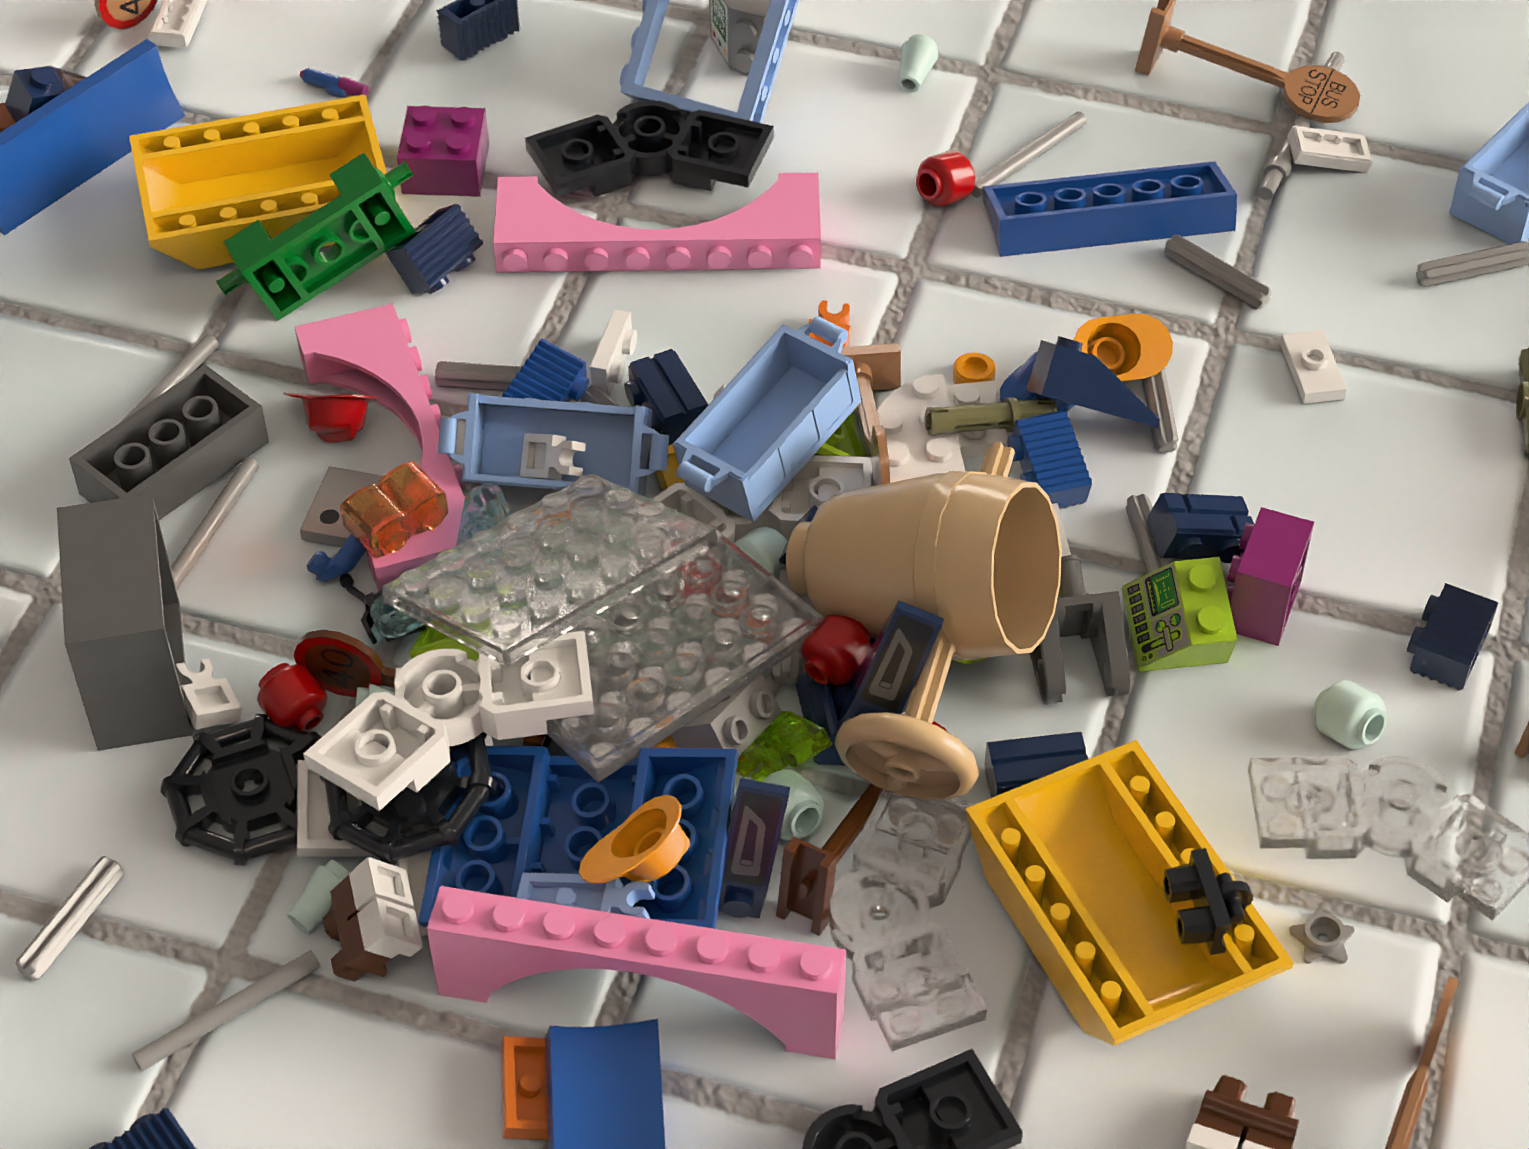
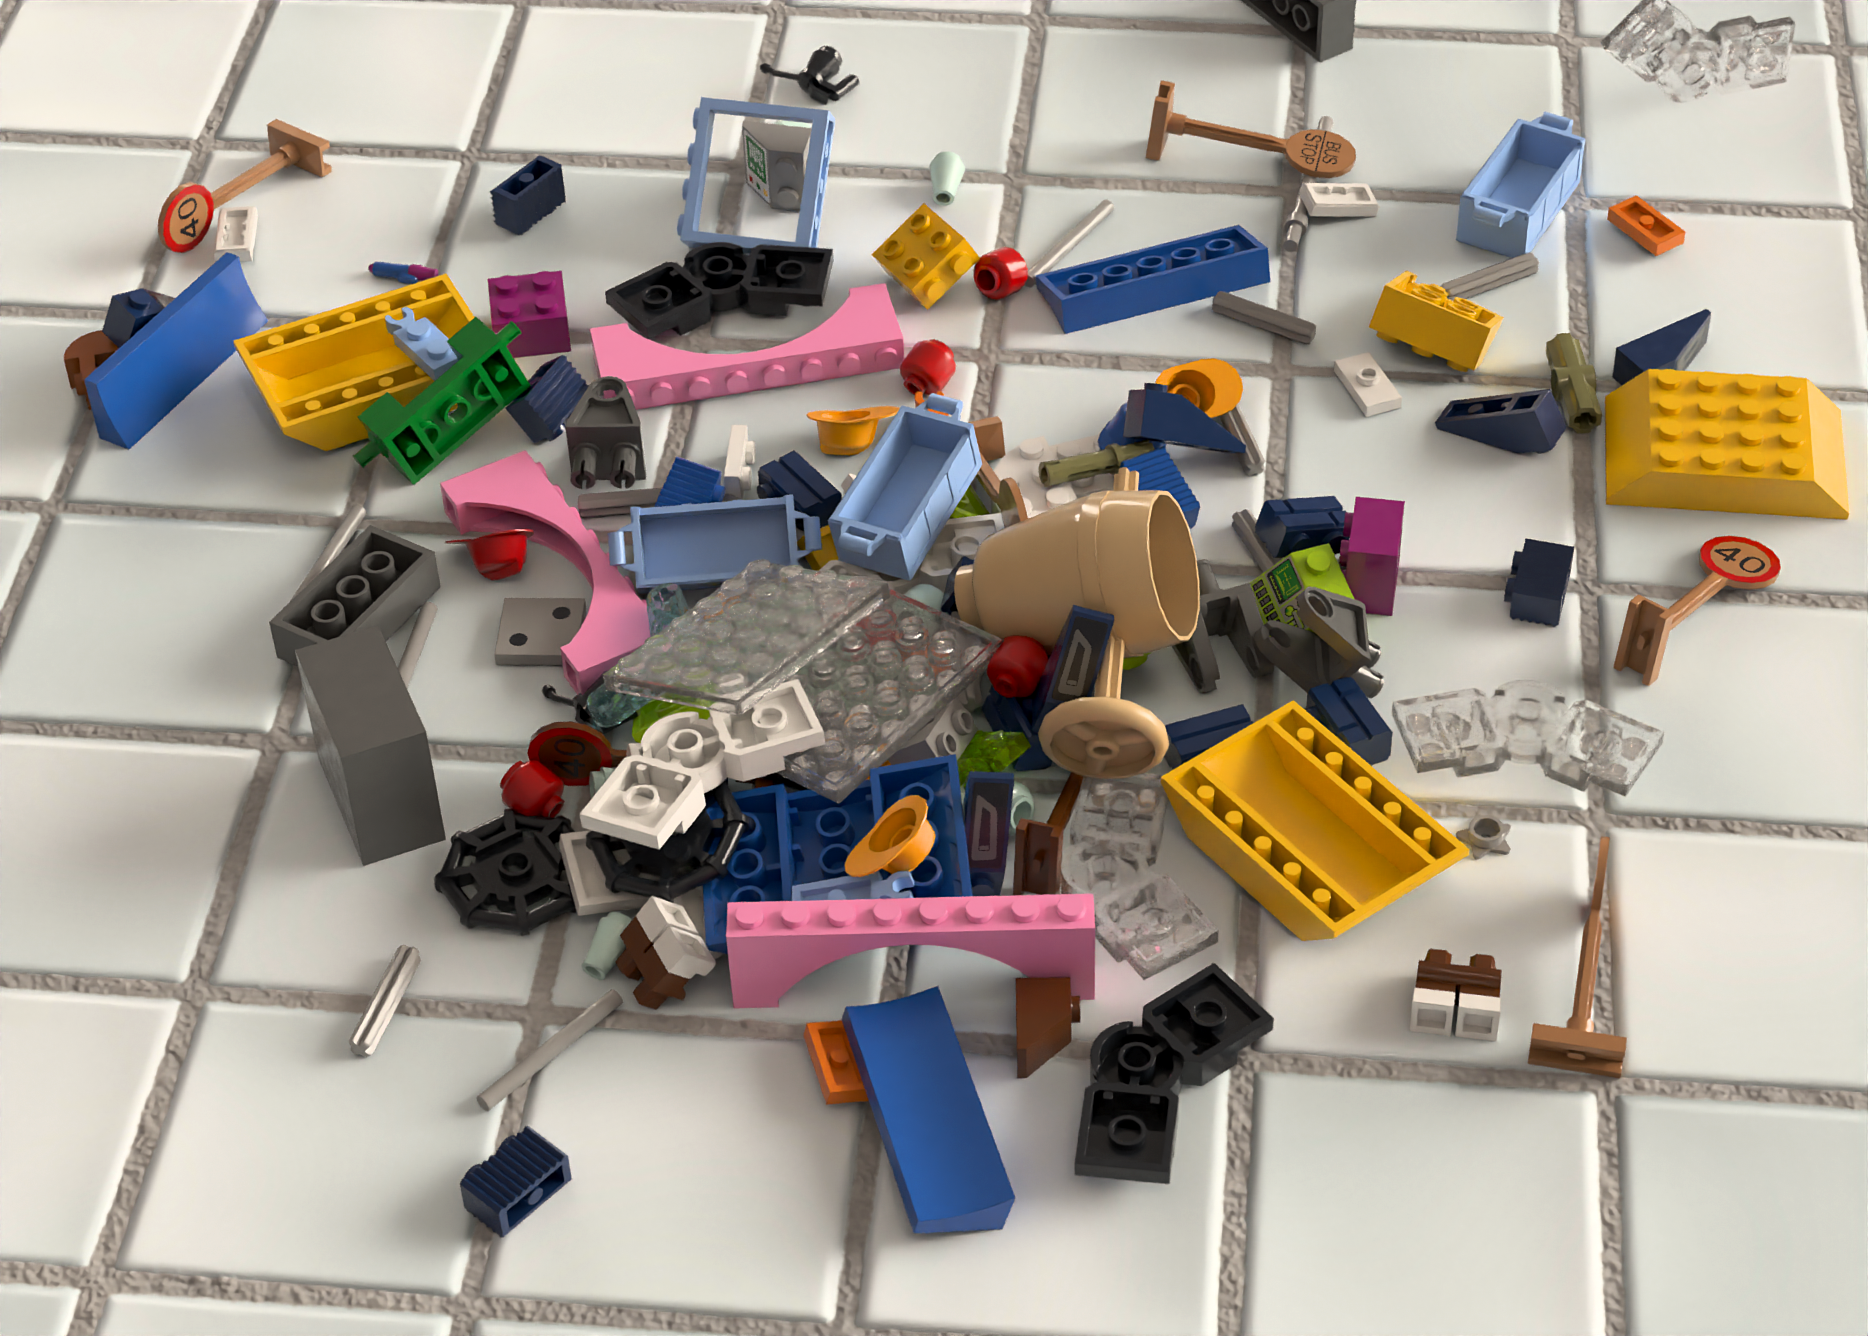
camera: 10 degrees left, 5 degrees down
(207, 700) = (459, 805): white plate -> none
(312, 166) = (422, 343): none -> light blue plate
(339, 564) = (542, 675): blue arm -> none
(394, 509) = (585, 618): clear orange brick -> none
(477, 302) = (605, 437): none -> dark grey piece
(549, 456) = (711, 553): white plate -> none
(738, 332) = (849, 430): none -> light orange piece
(765, 1081) = (1043, 1020): none -> reddish brown slope
(841, 274) = (928, 367): none -> red head
(868, 149) = (925, 256): none -> yellow brick
(973, 368) = (1067, 429): light orange tile -> none
(1188, 683) = (1332, 651): none -> dark grey piece
(1197, 770) = (1351, 718): none -> dark blue brick
(1216, 901) = (1392, 810): black hips -> none
(1350, 714) = (1468, 657): light aqua head -> none
(1401, 307) = (1434, 323): none -> yellow wedge
(1459, 437) = (1507, 421): none -> dark blue slope

